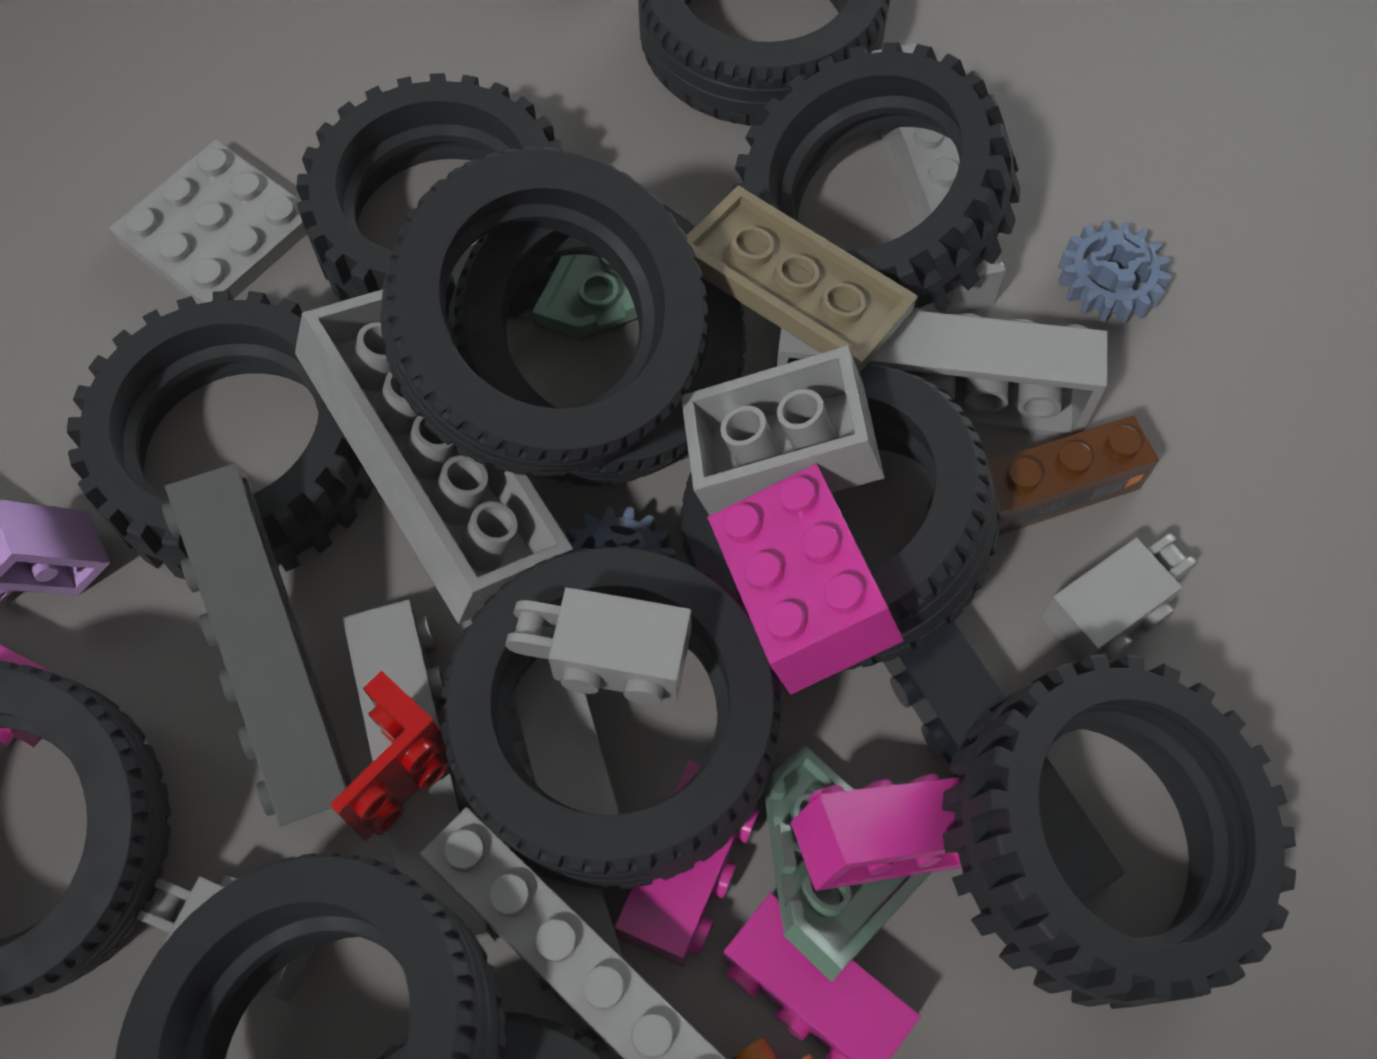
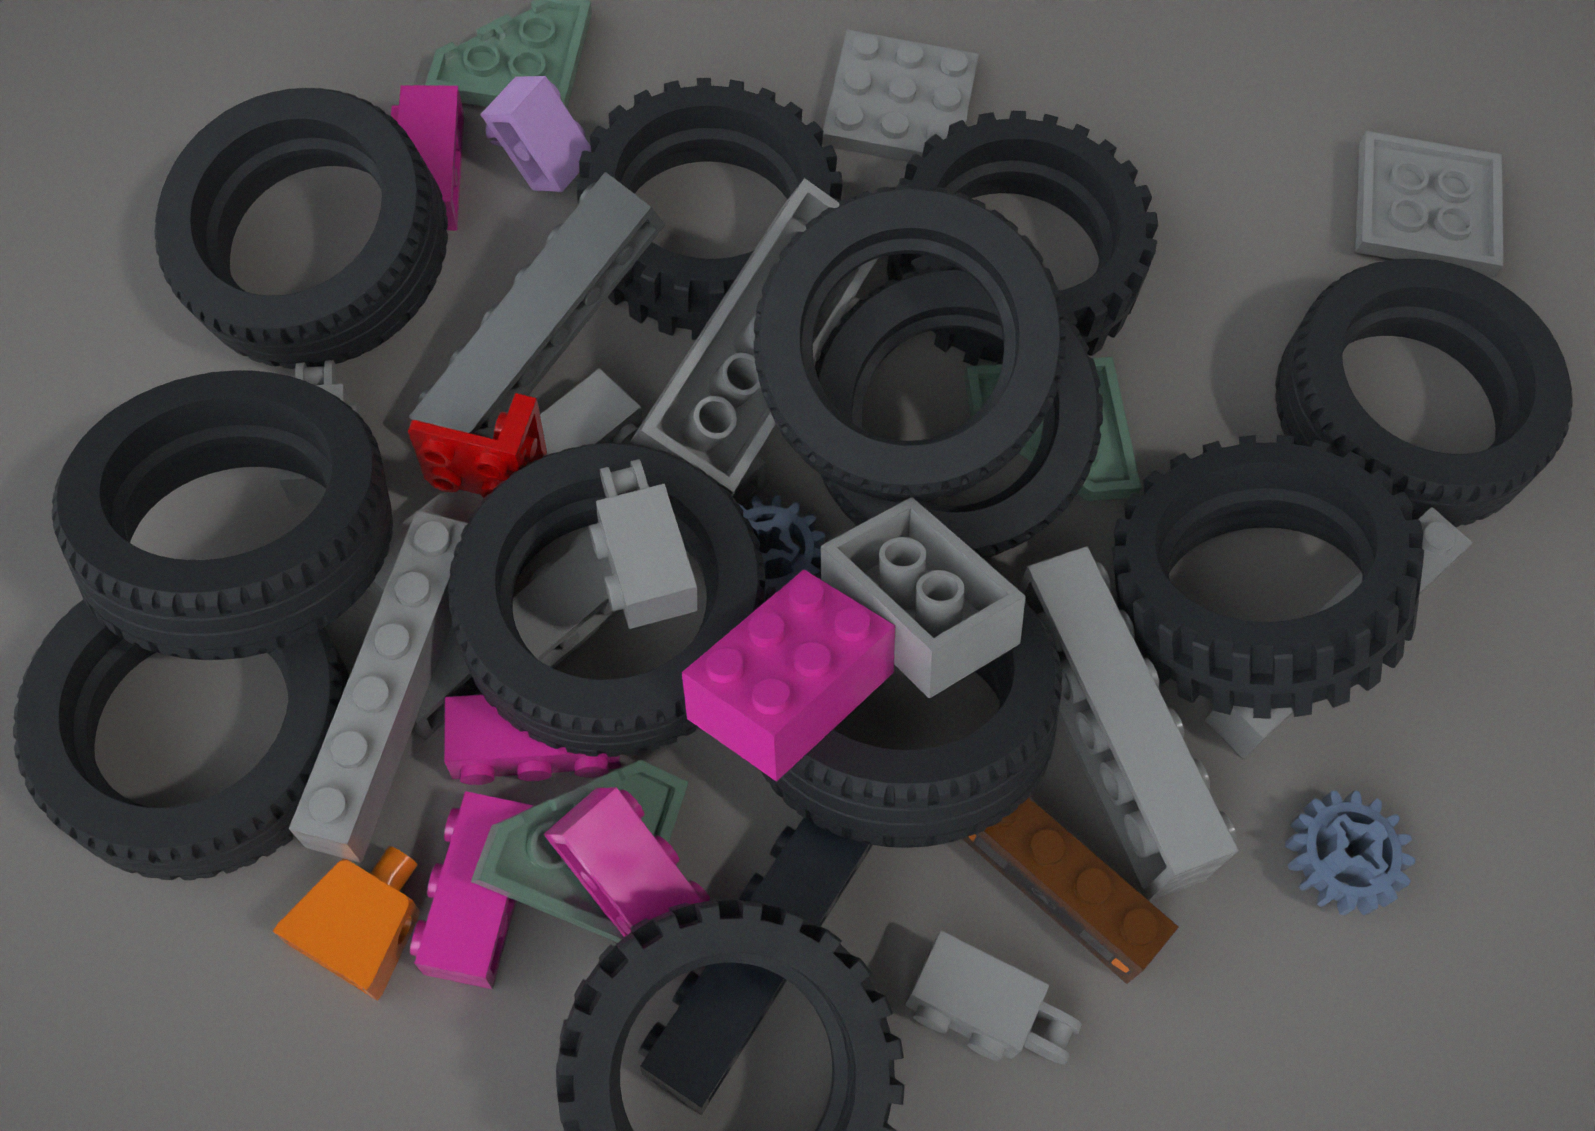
camera: 55 degrees right, 0 degrees up
(798, 278) = (1094, 539): dark tan plate -> none

